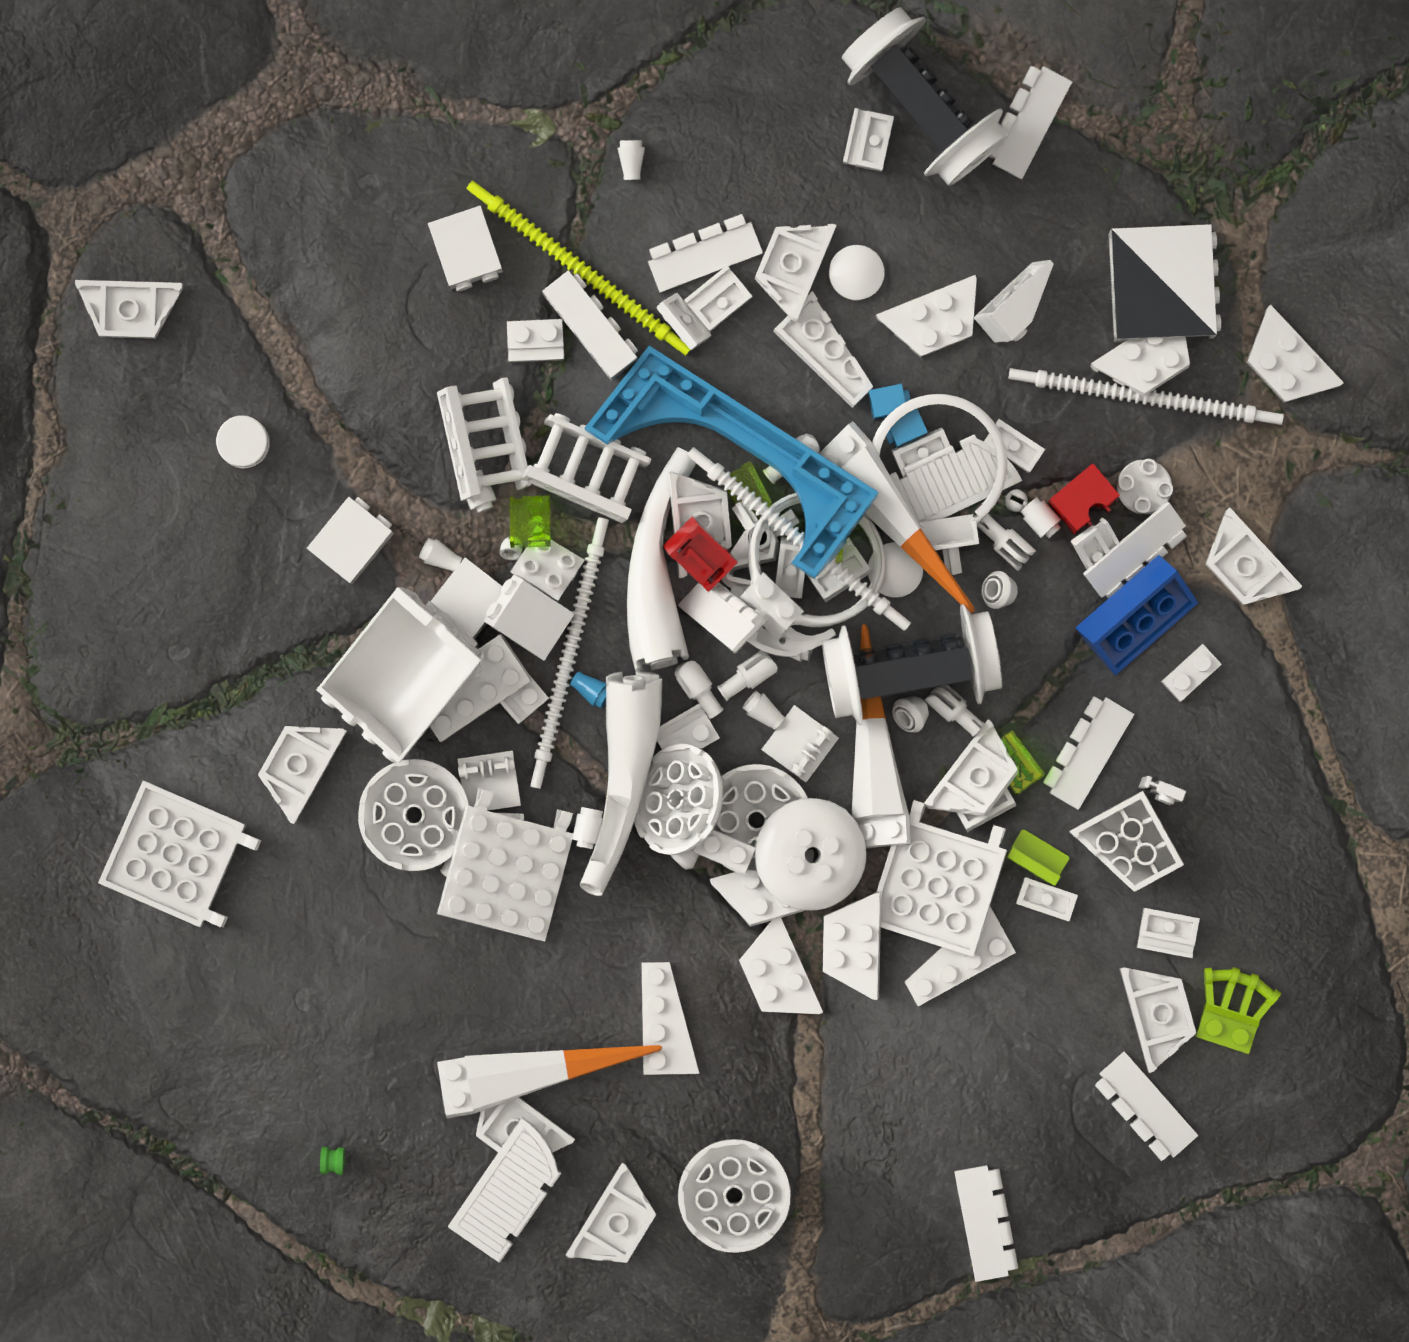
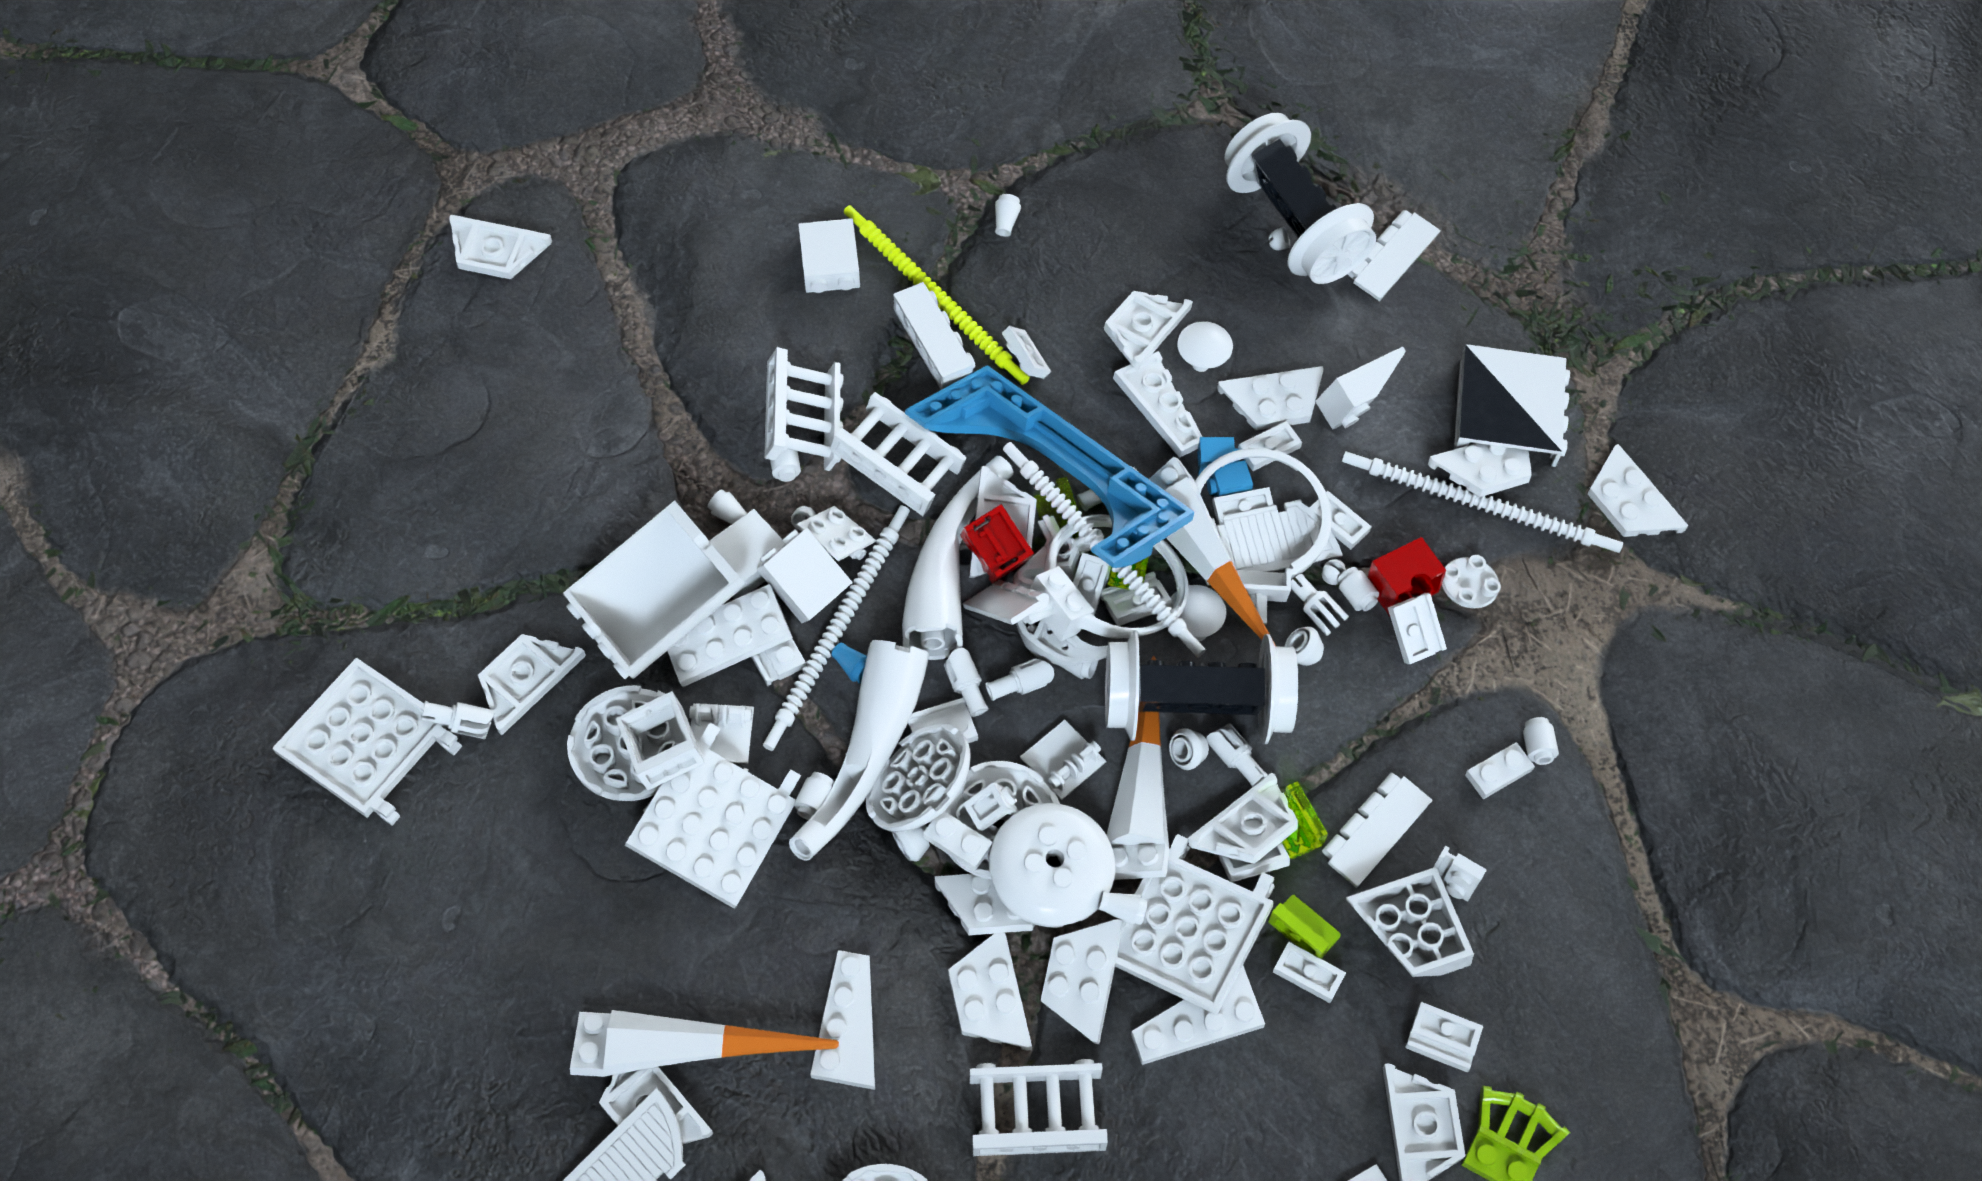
camera: 10 degrees right, 25 degrees down
(242, 442) = (564, 376): white head -> none
(256, 822) = (460, 718): none -> white arm
(332, 1161) = (426, 1098): bright green wheel -> none
(351, 539) = (643, 478): white brick -> none
(459, 841) = (670, 762): none -> white window
(530, 521) = (829, 493): clear neon green plate -> none
(535, 340) = (876, 346): white plate -> none
(701, 258) = (1052, 308): white windscreen -> none
(718, 298) = (1064, 341): white plate -> none
(748, 814) = (991, 805): none -> white bracket
(763, 710) = (1030, 717): white cone -> none
(857, 1084) = (1022, 1138): none -> white fence
(868, 139) = (1236, 239): white plate -> none
(881, 881) = (1126, 907): none -> white cone
(912, 130) = (1279, 239): none -> white hinge
(937, 375) = (1279, 438): none -> white plate
(1137, 614) = (1448, 699): blue slope -> none
(1138, 547) = (1458, 633): white windscreen -> none
(1224, 639) = (1540, 741): none -> white brick
(1246, 563) = (1573, 675): white wing -> none

